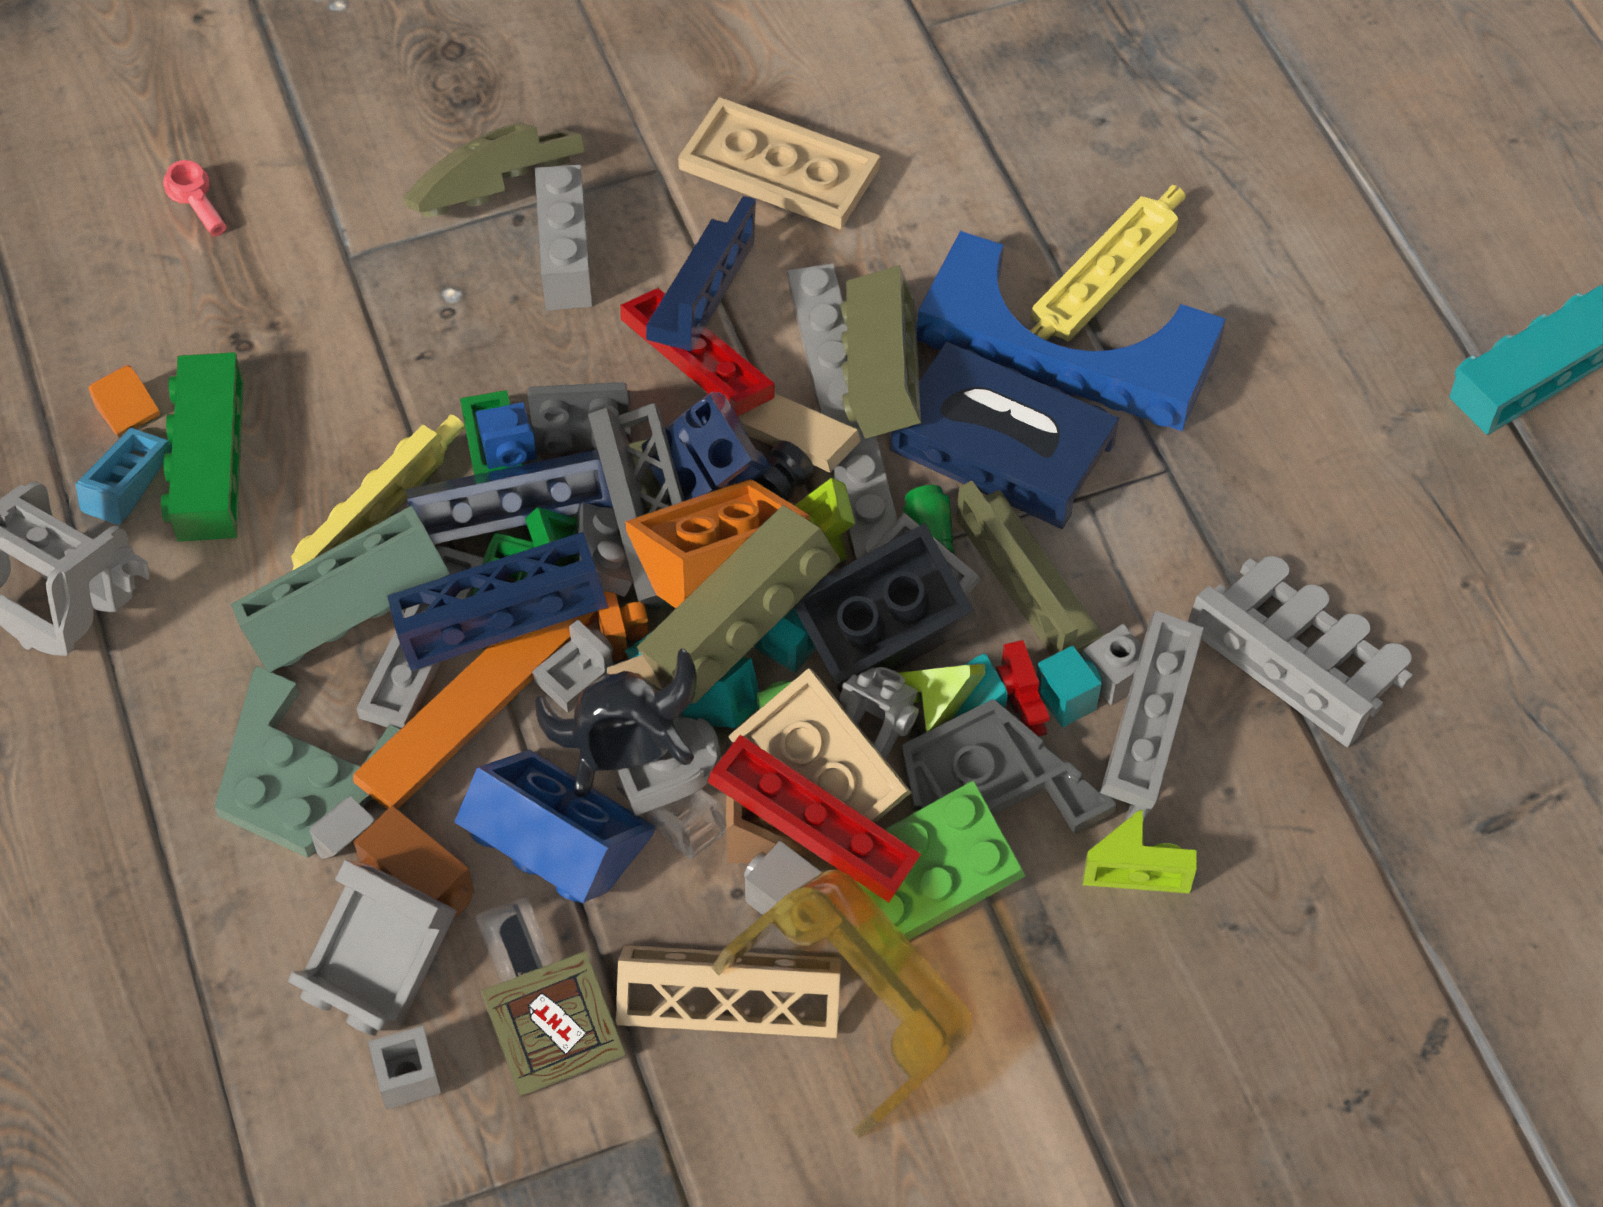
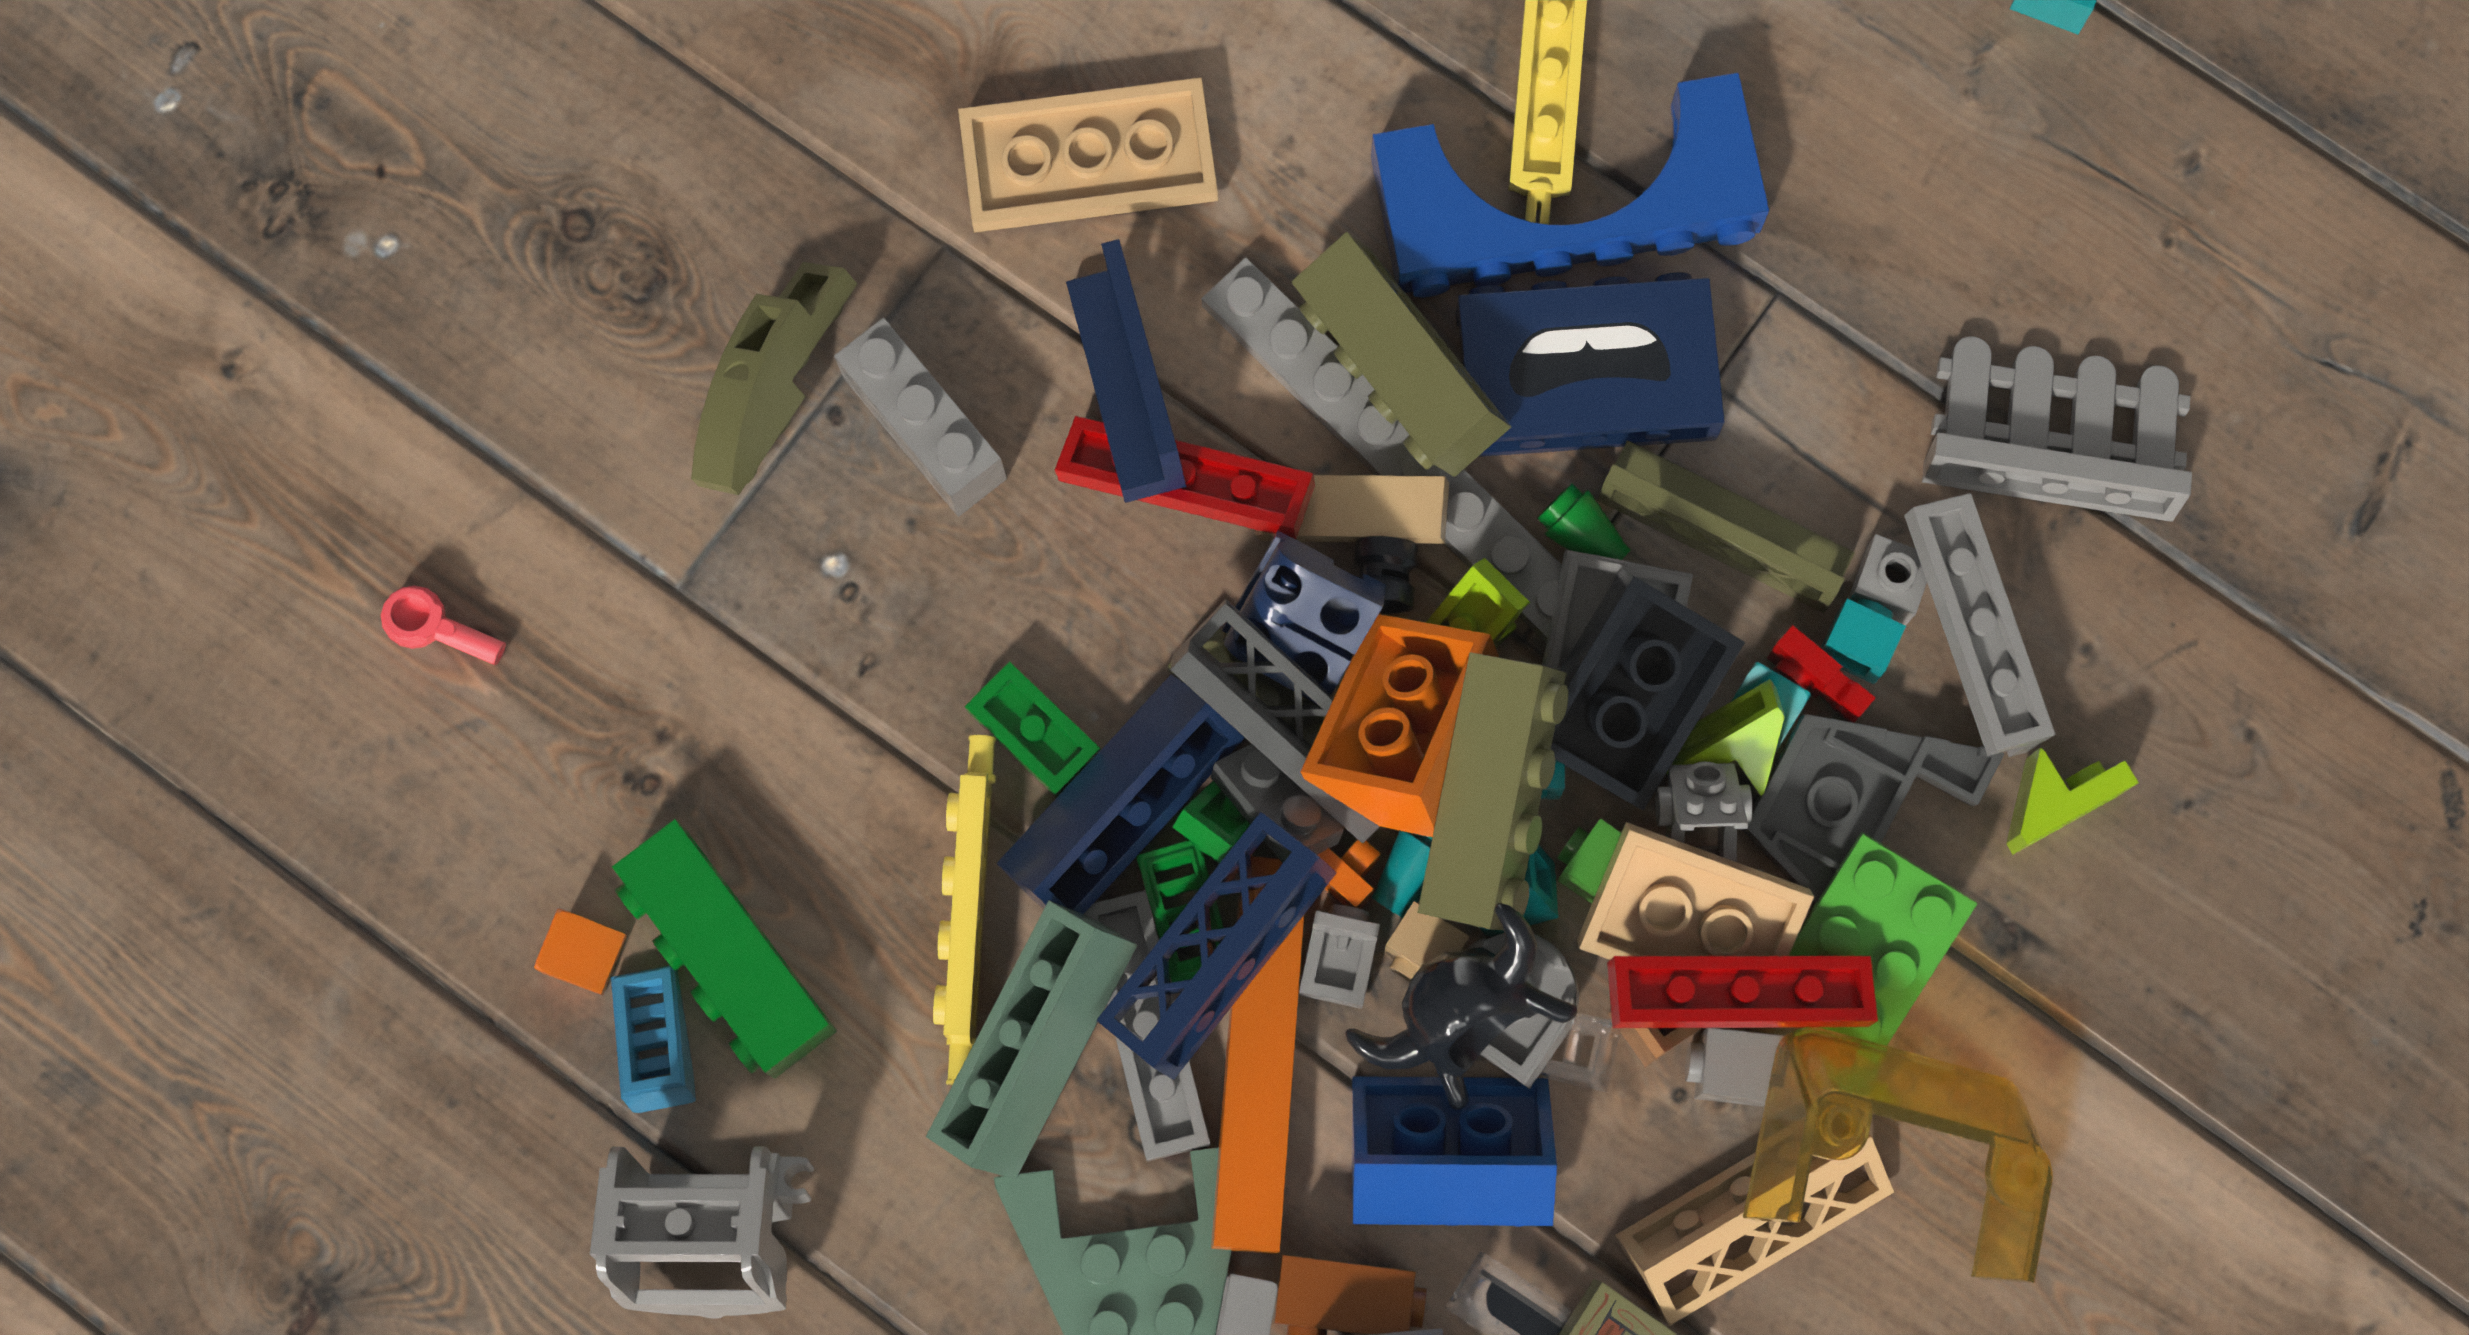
camera: 30 degrees left, 20 degrees up
(506, 435) = (1061, 726): blue bracket -> none
(562, 412) = (1115, 640): dark grey bracket -> none

